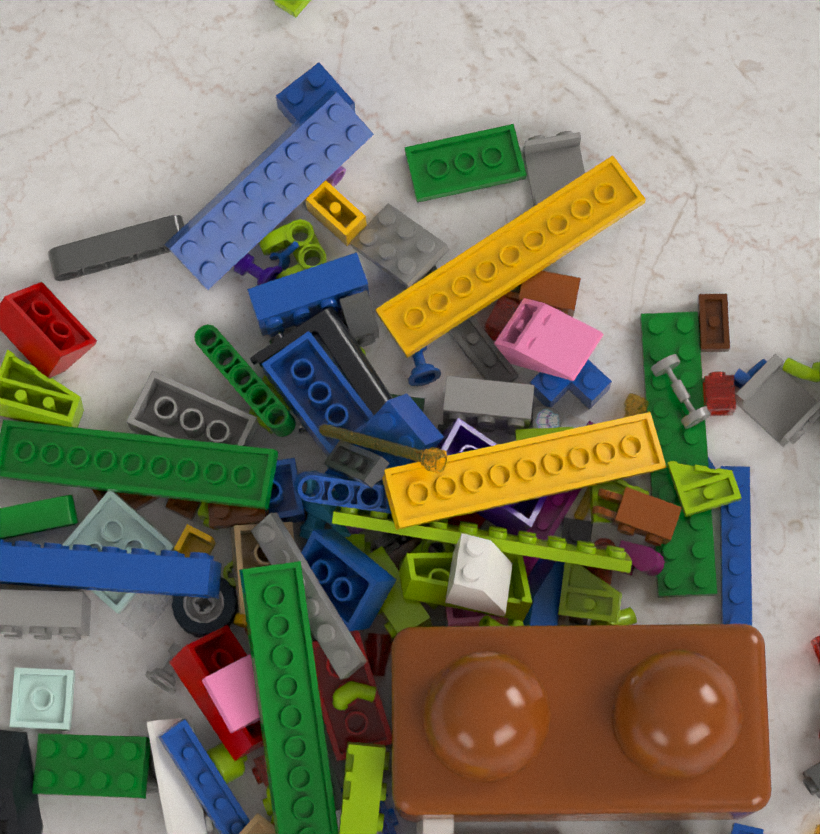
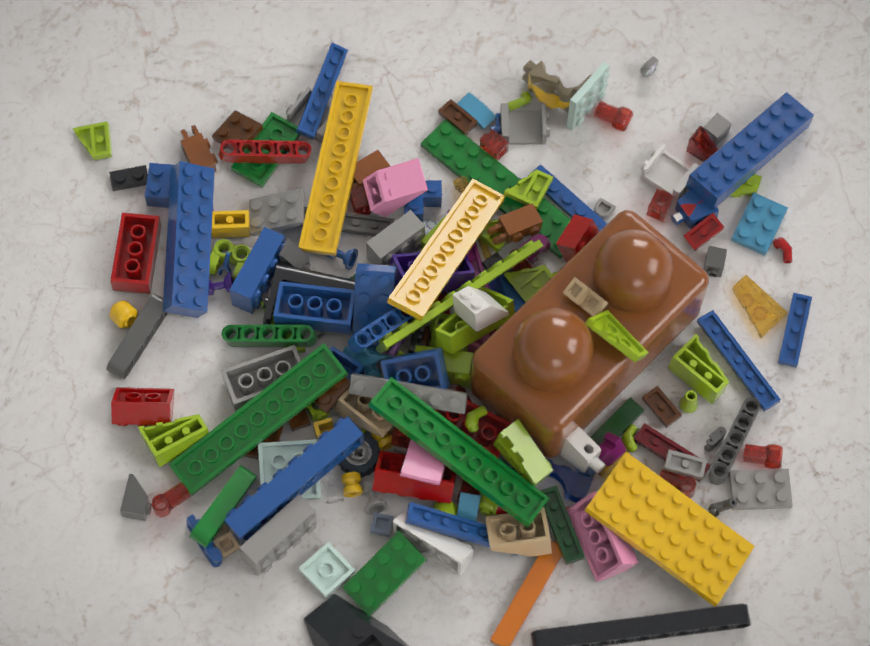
camera: 50 degrees left, 10 degrees down
(125, 207) = (123, 314): none -> yellow head
(148, 706) = (381, 524): none -> sand blue plate
(163, 631) = (351, 484): none -> yellow wheel
(205, 151) = (136, 253): none -> red brick
(250, 784) = (468, 506): none -> dark azure slope
(287, 56) = (128, 178): none -> black plate
(356, 463) = (370, 310): dark grey plate -> none
(386, 97) = (197, 149): none -> dark orange hinge
(432, 459) = (405, 273): clear yellow piece -> none
(449, 151) = (257, 156): none -> red beam
(453, 113) = (237, 127): none -> reddish brown plate
(576, 771) = (616, 334): none -> lime wing
(591, 690) = (585, 297): none -> tan slope
(592, 151) = (322, 91): none -> blue plate
(666, 366) = (477, 157): light grey wheel -> none
(691, 598) = (576, 236): none -> red brick
(743, 334) = (477, 110): none -> dark azure slope
(767, 588) = (604, 209): none -> light grey tile

